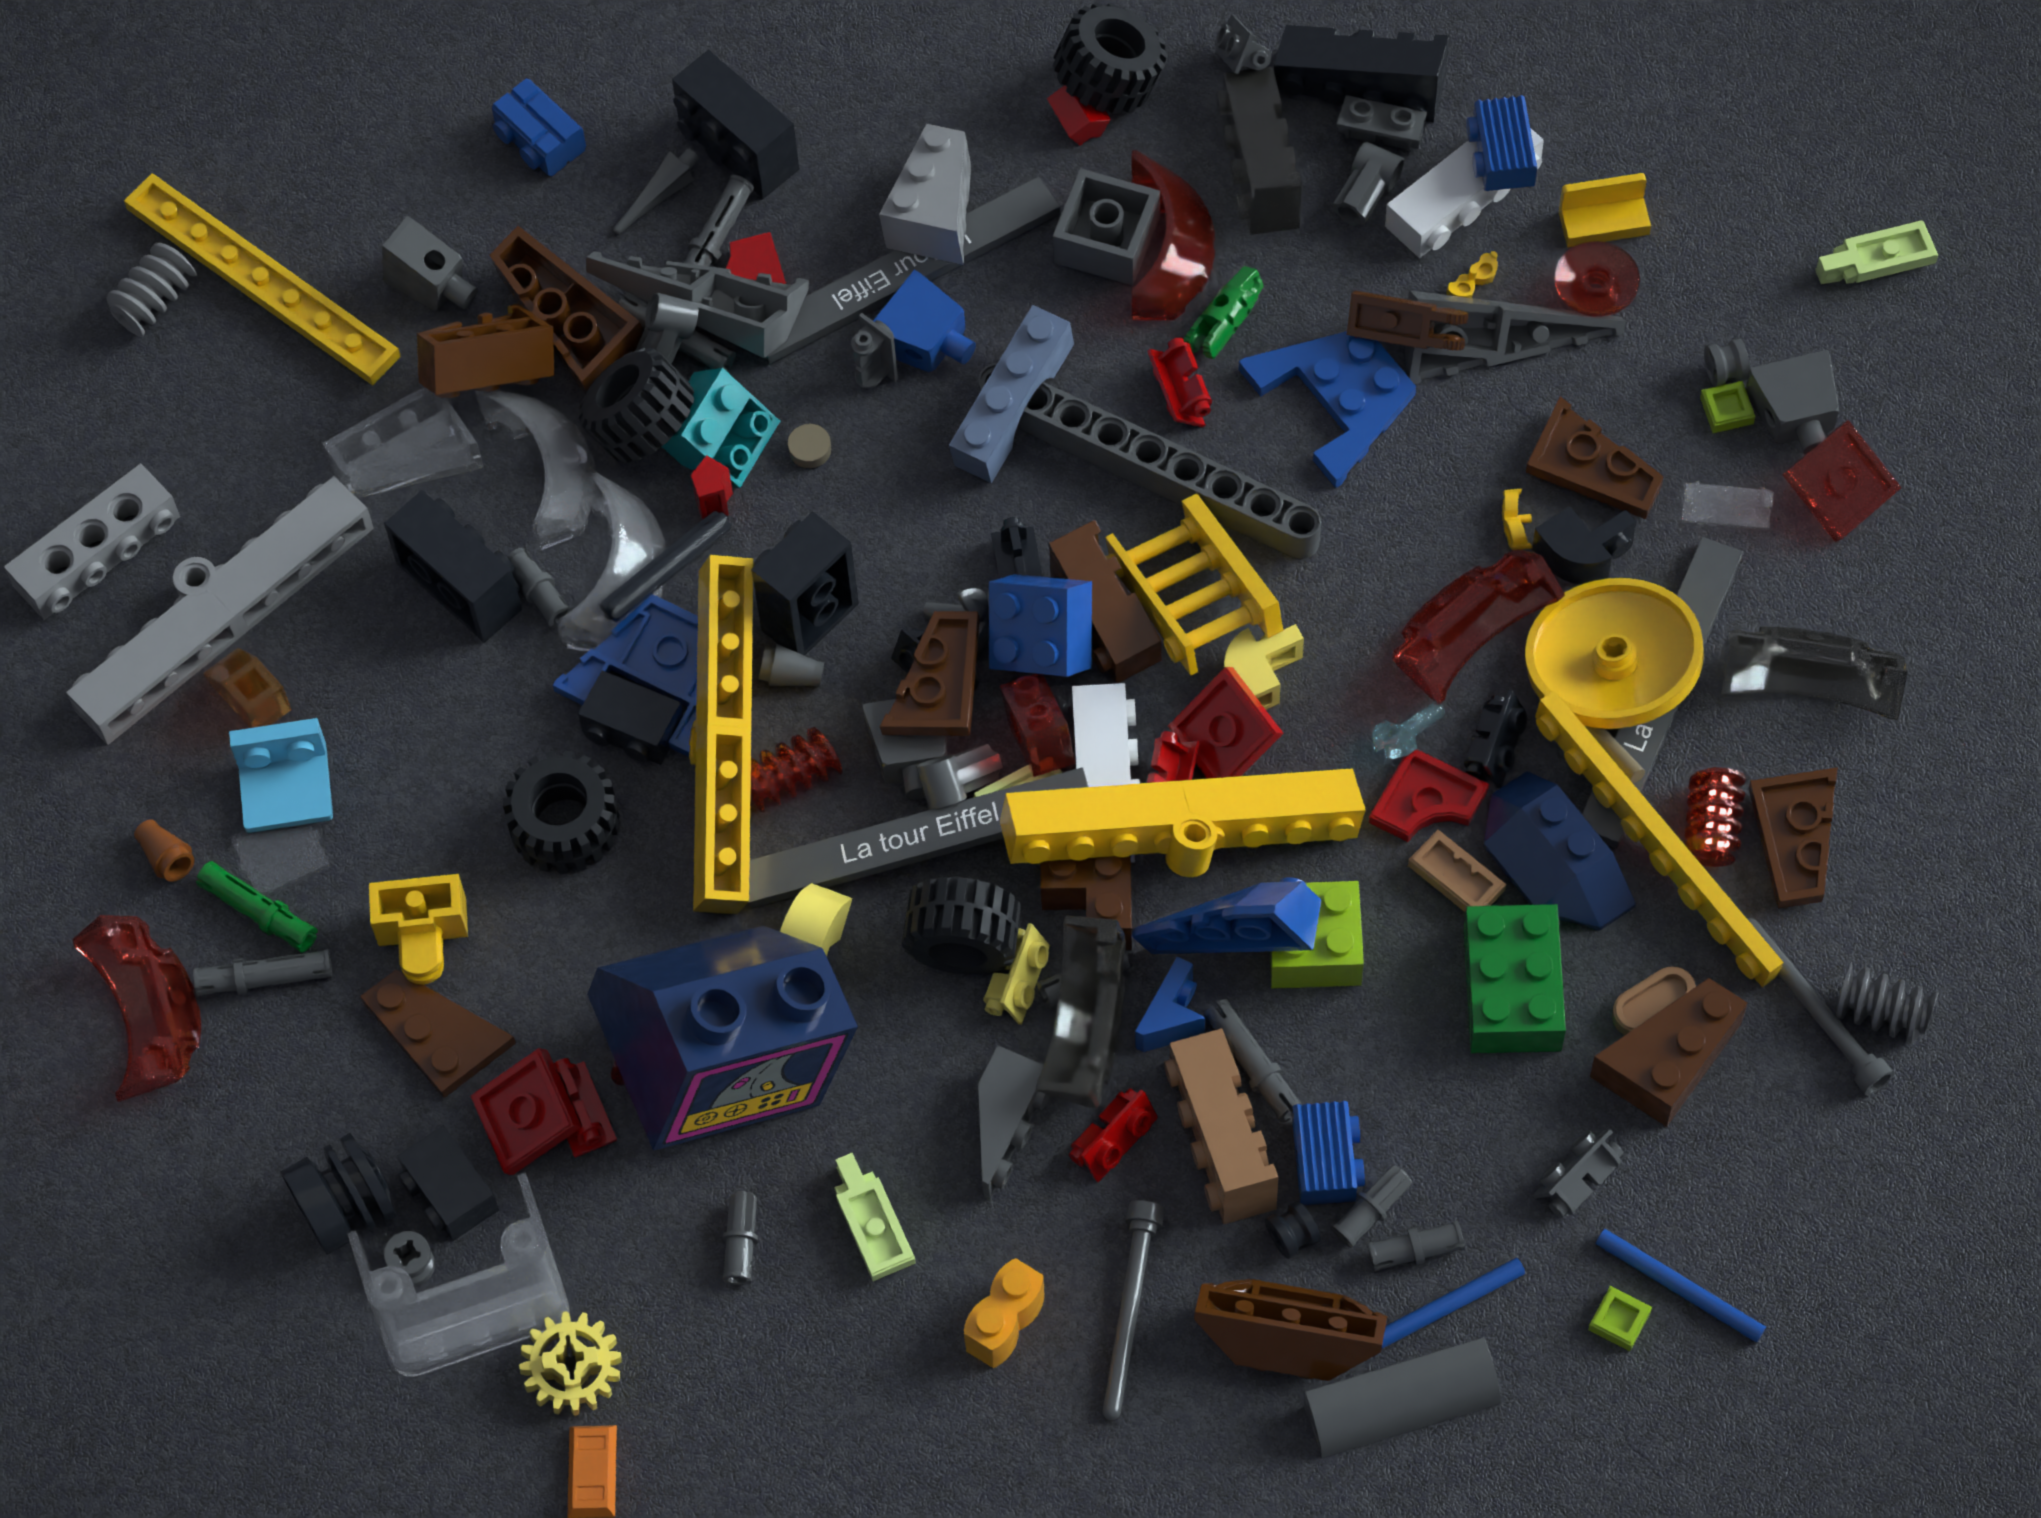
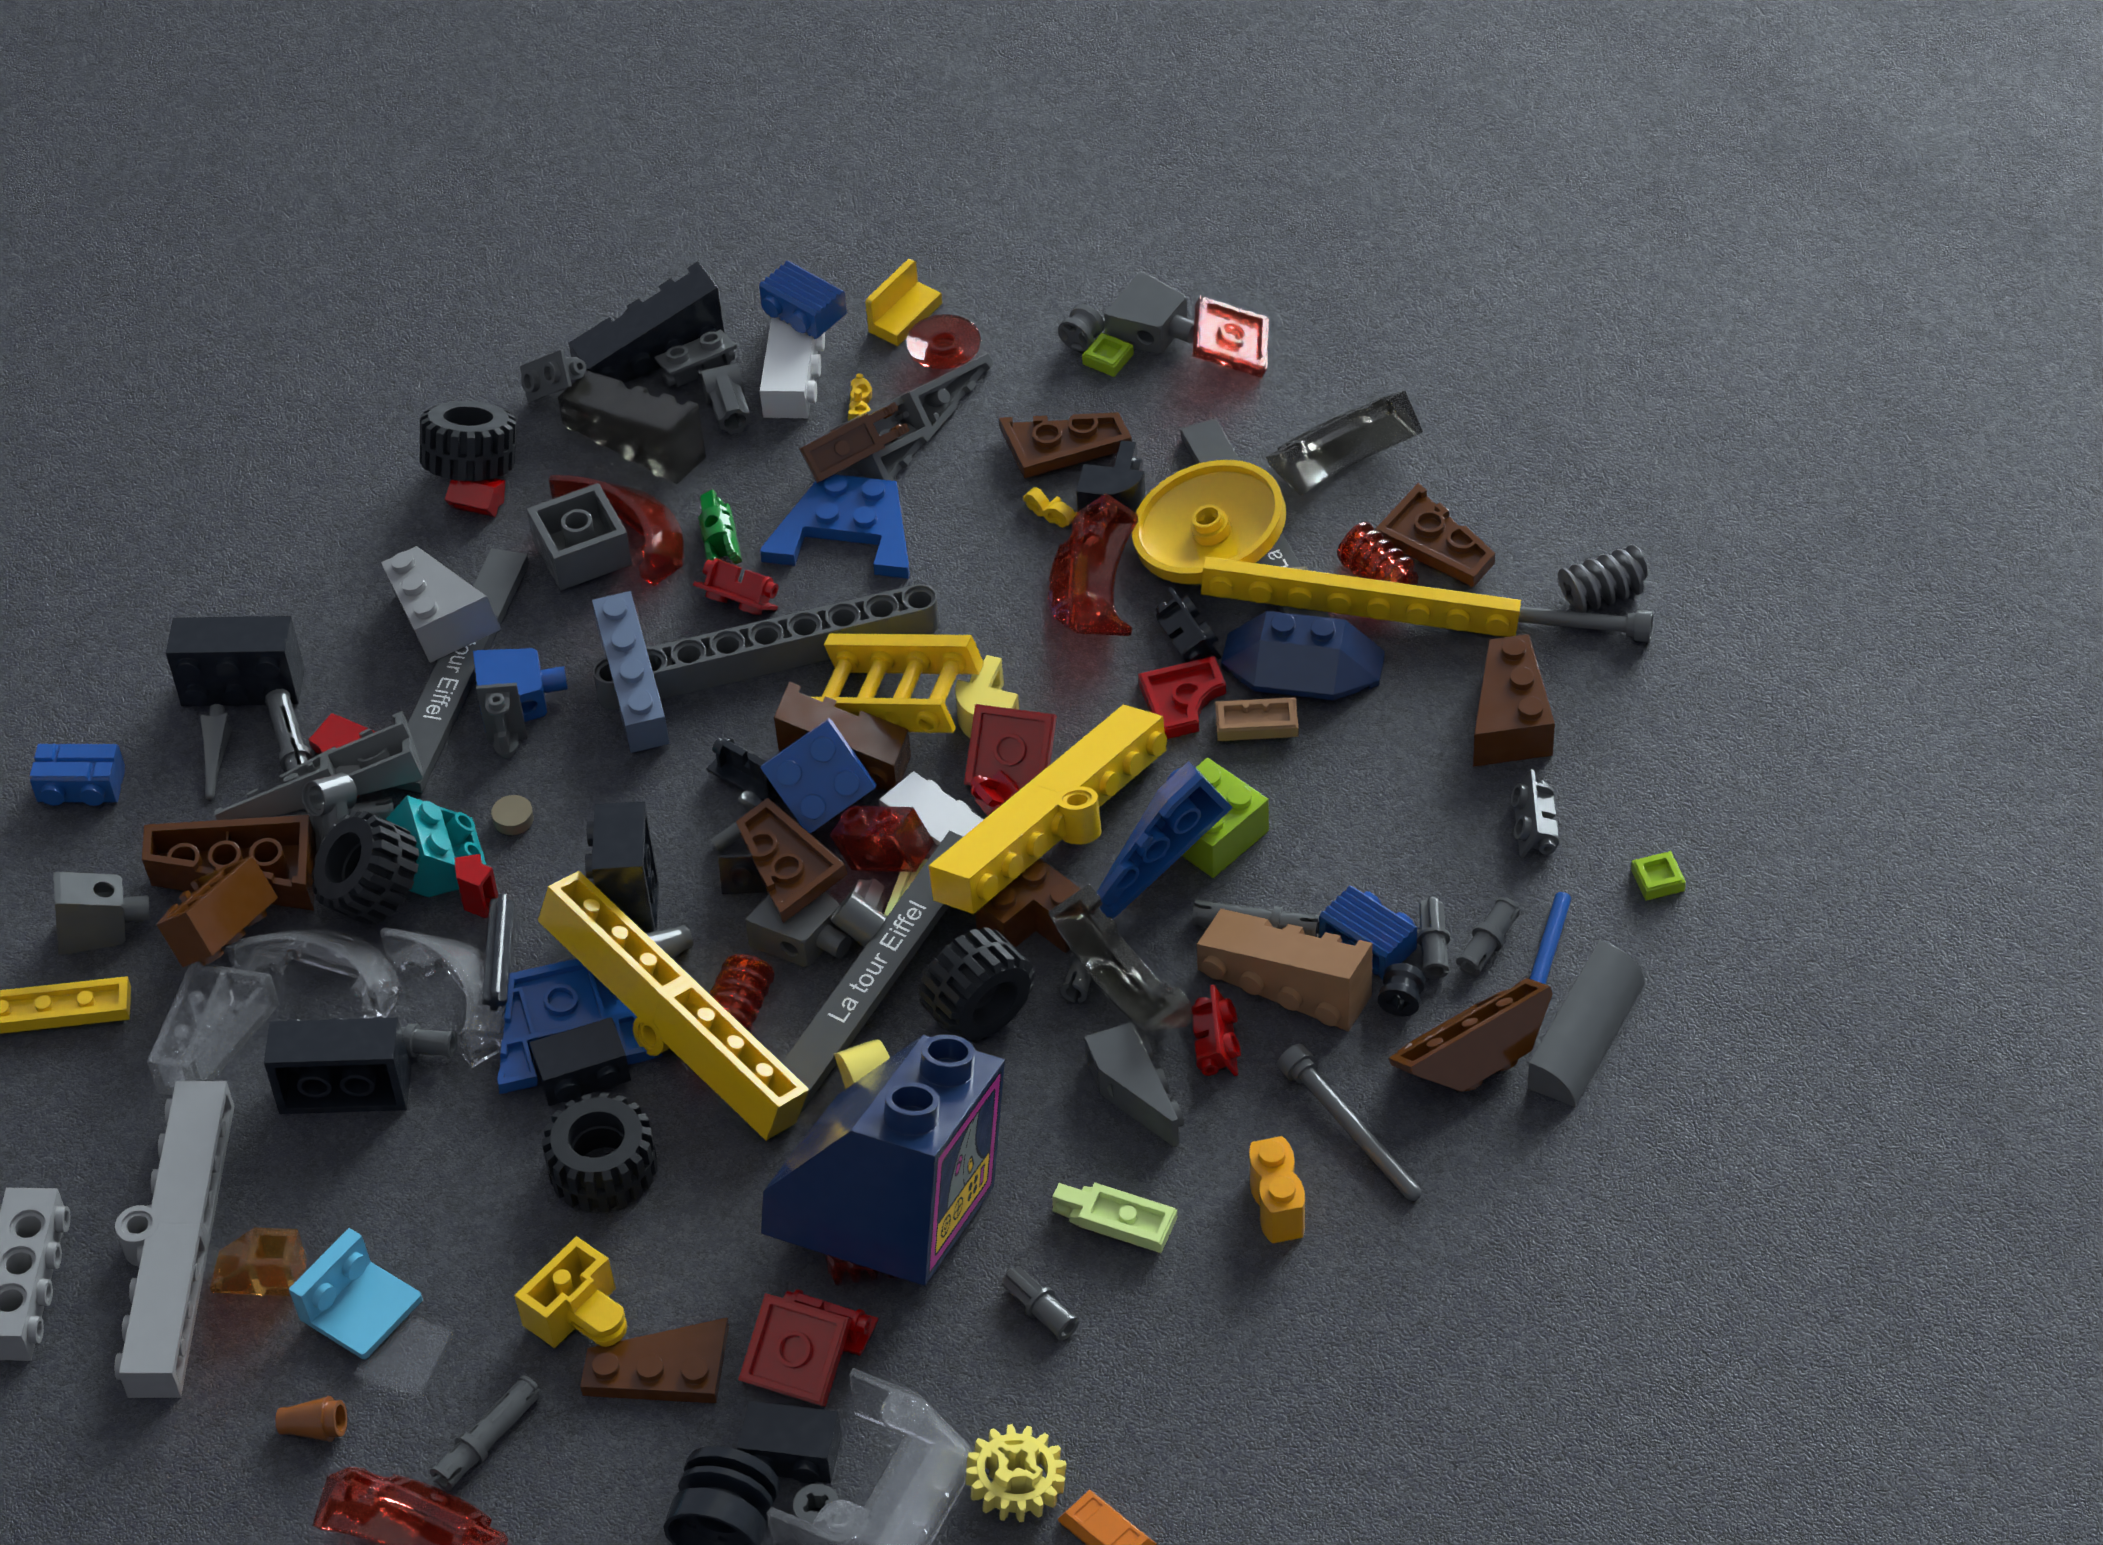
camera: 45 degrees left, 15 degrees down
(269, 914) = (431, 1396): green pin -> none
(1016, 989) = (1048, 1007): light yellow hinge -> none
(1167, 1015) = (1171, 937): blue slope -> none
(1400, 739) = (1127, 670): clear light blue bar -> none
(1514, 979) = (1366, 742): green brick -> none
(1650, 997) = (1461, 694): medium nougat tile -> none
(1680, 1285) = (1670, 828): blue bar -> none
(1727, 505) = (1174, 402): clear hinge -> none
(1878, 254) = (1103, 210): yellowish green hinge -> none

